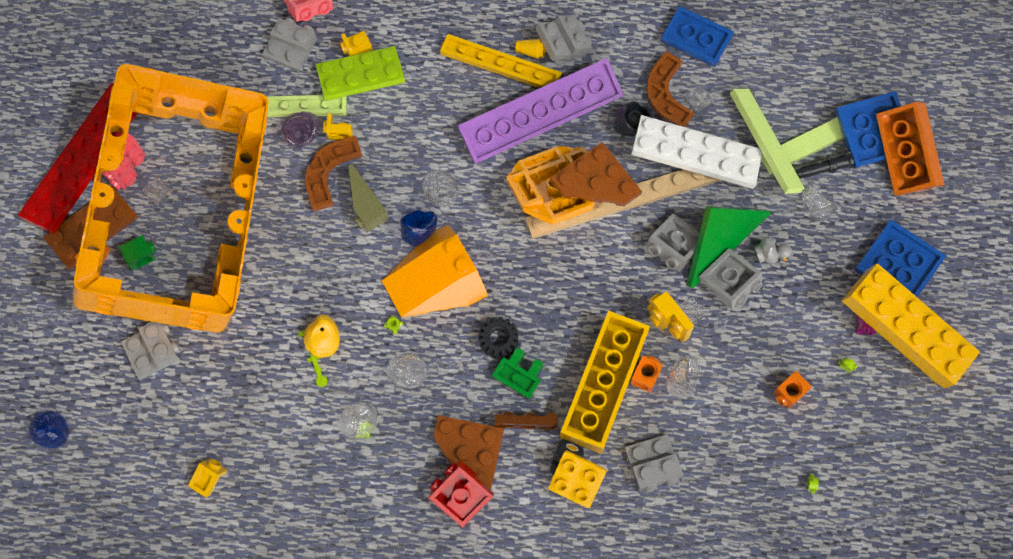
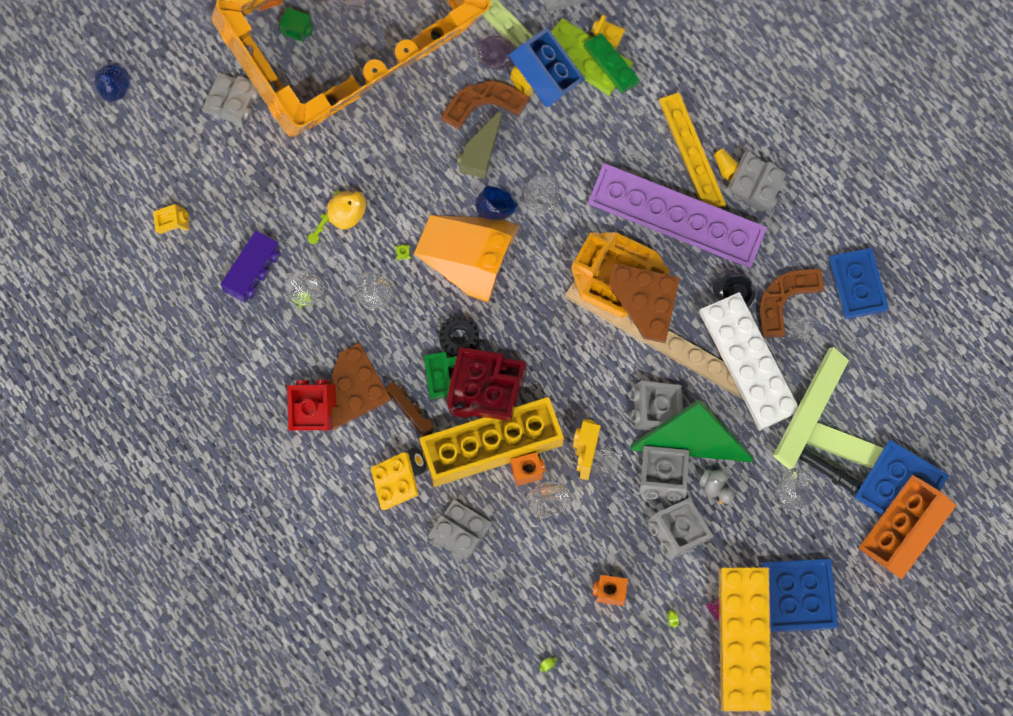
camera: 45 degrees right, 0 degrees up
(304, 447) = (251, 267): none -> dark purple brick
(347, 103) = (546, 67): none -> blue brick
(384, 58) = (611, 63): none -> green plate
(558, 349) = (485, 385): none -> dark red slope
(783, 304) = (679, 529): none -> light grey plate

